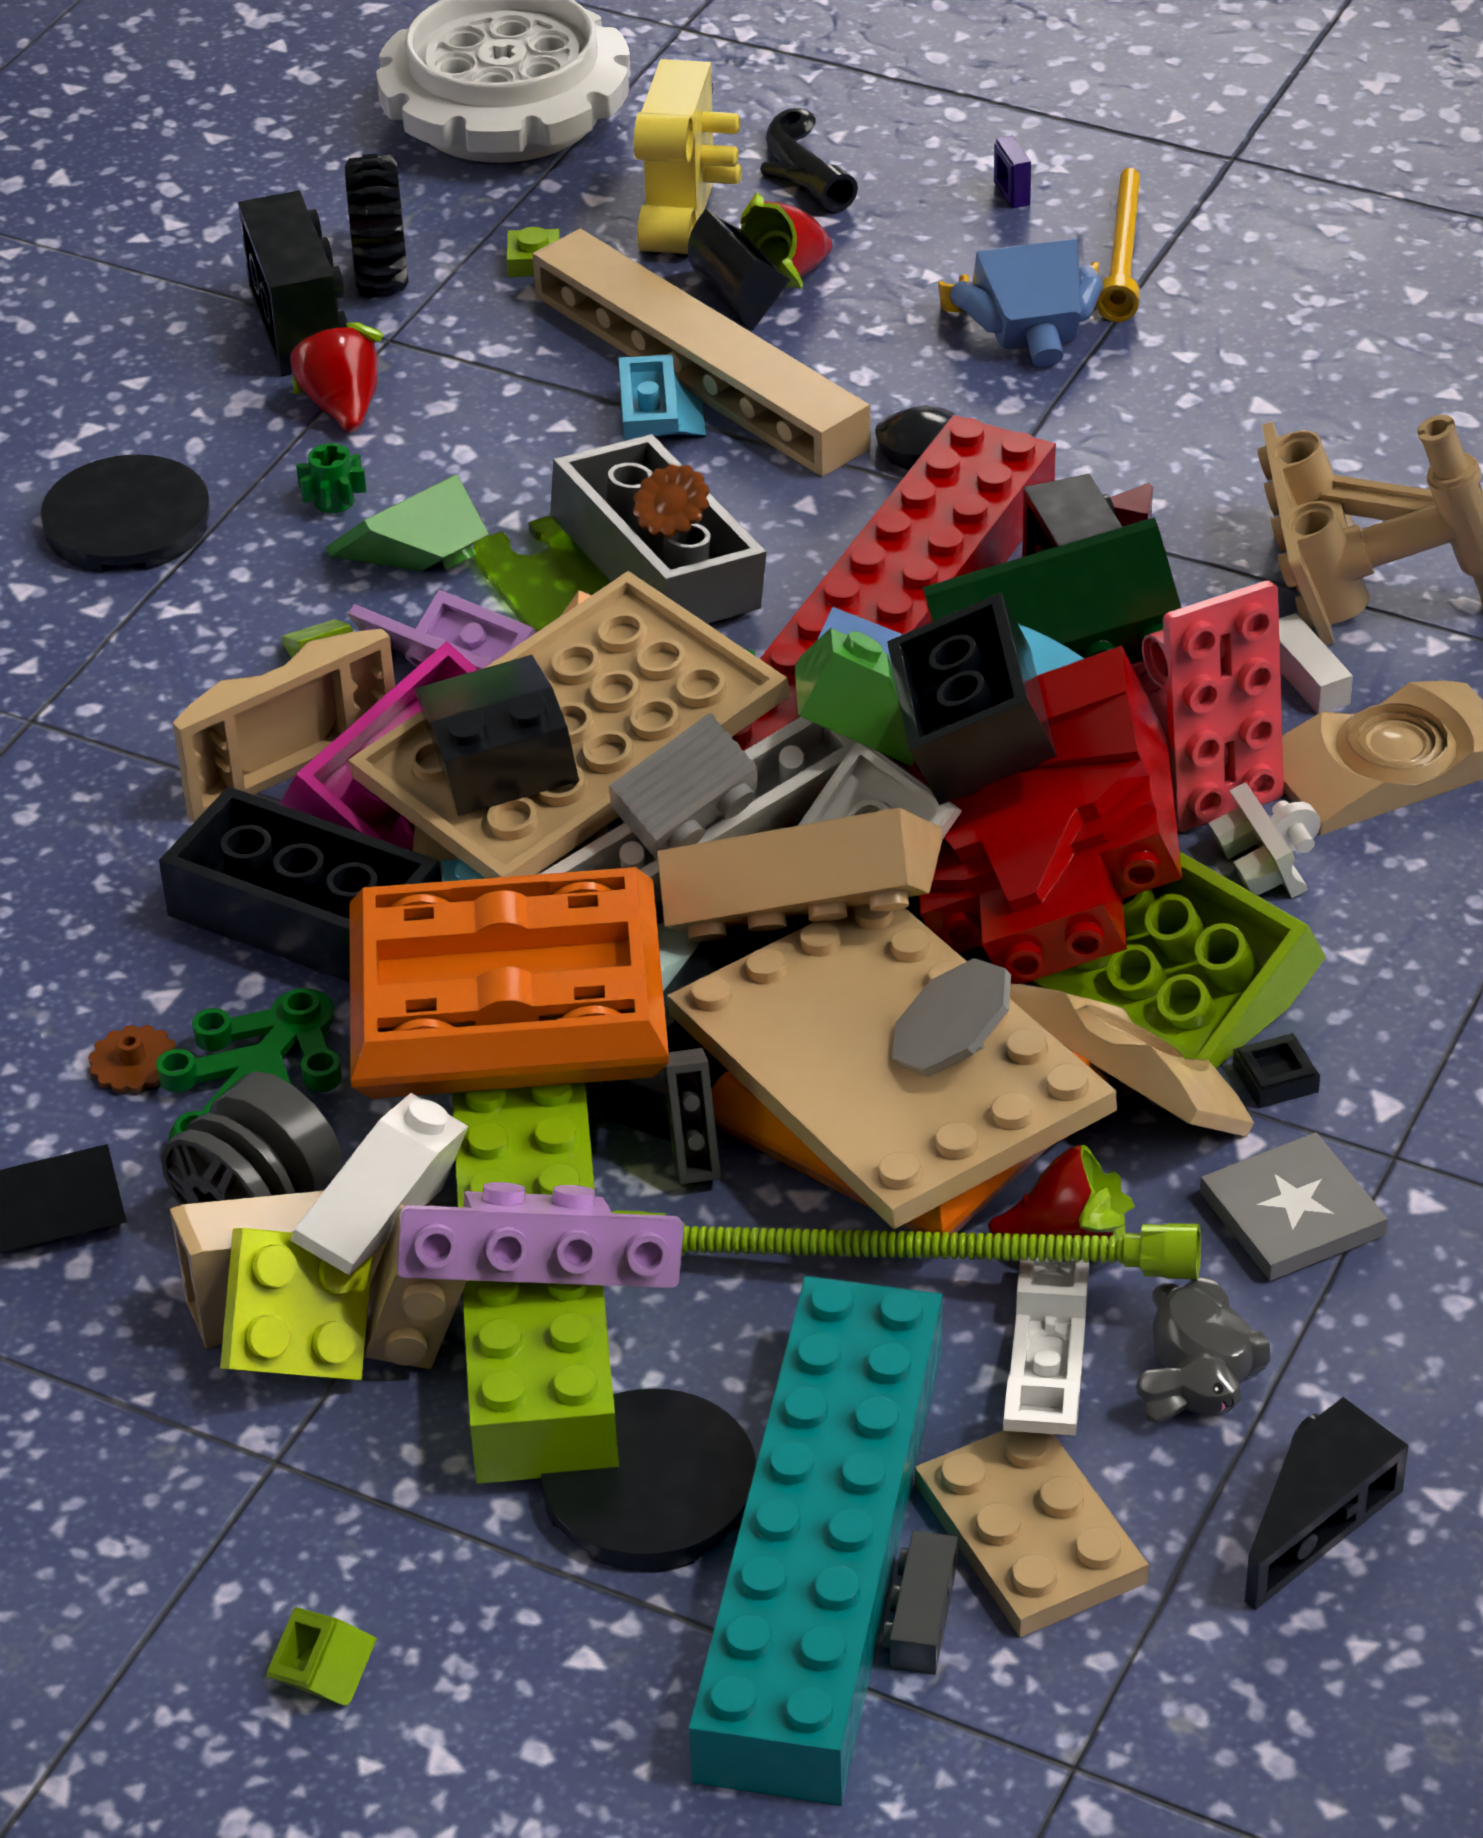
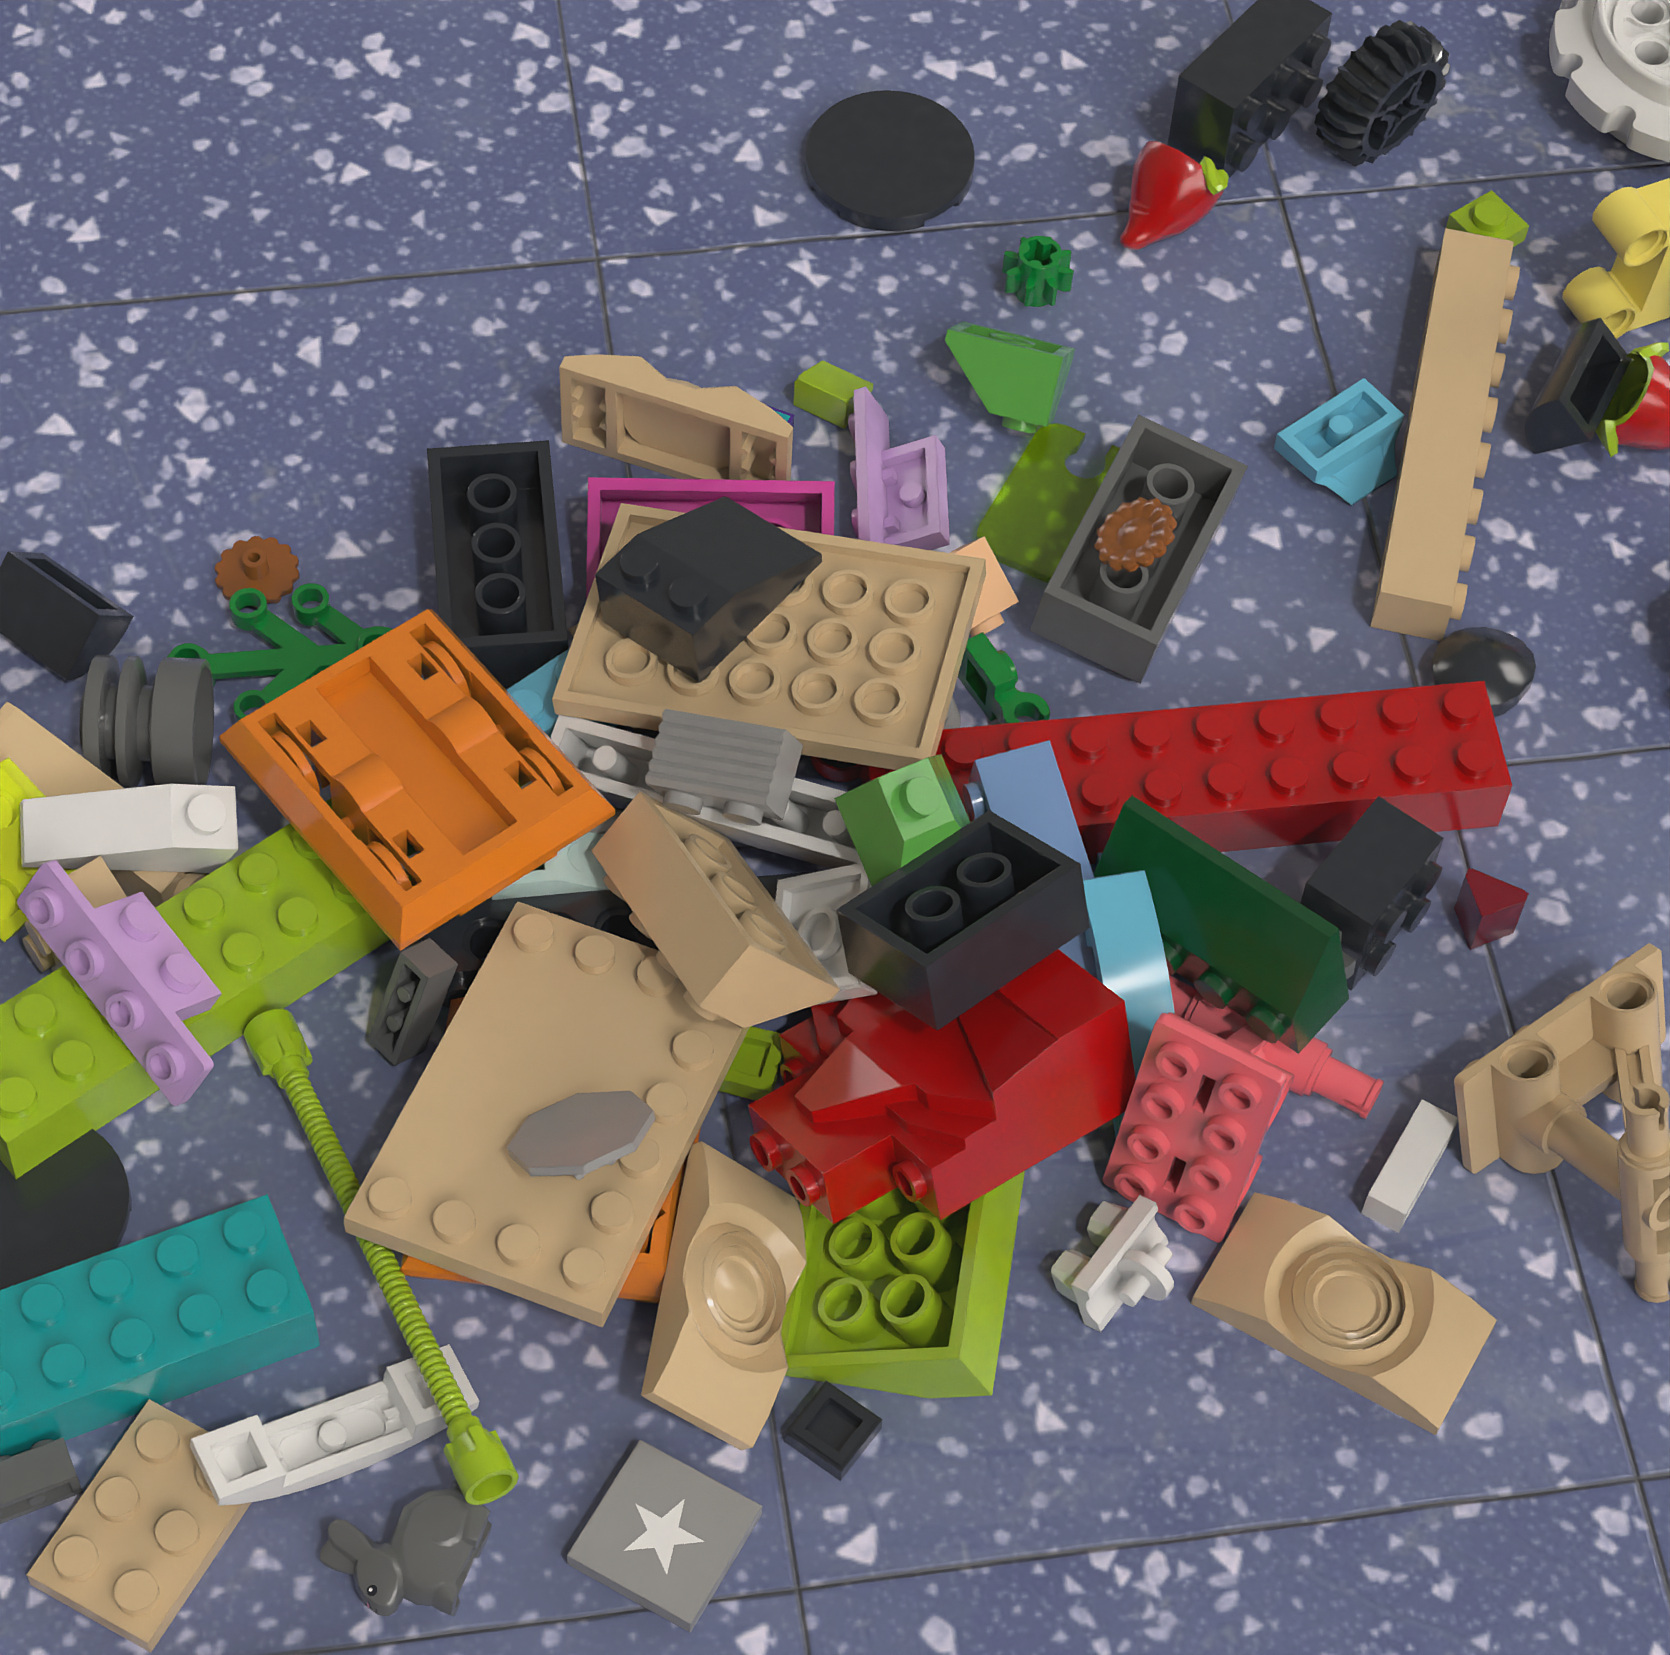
camera: 50 degrees right, 15 degrees up
(1069, 1200) = (517, 1361): red hat -> none

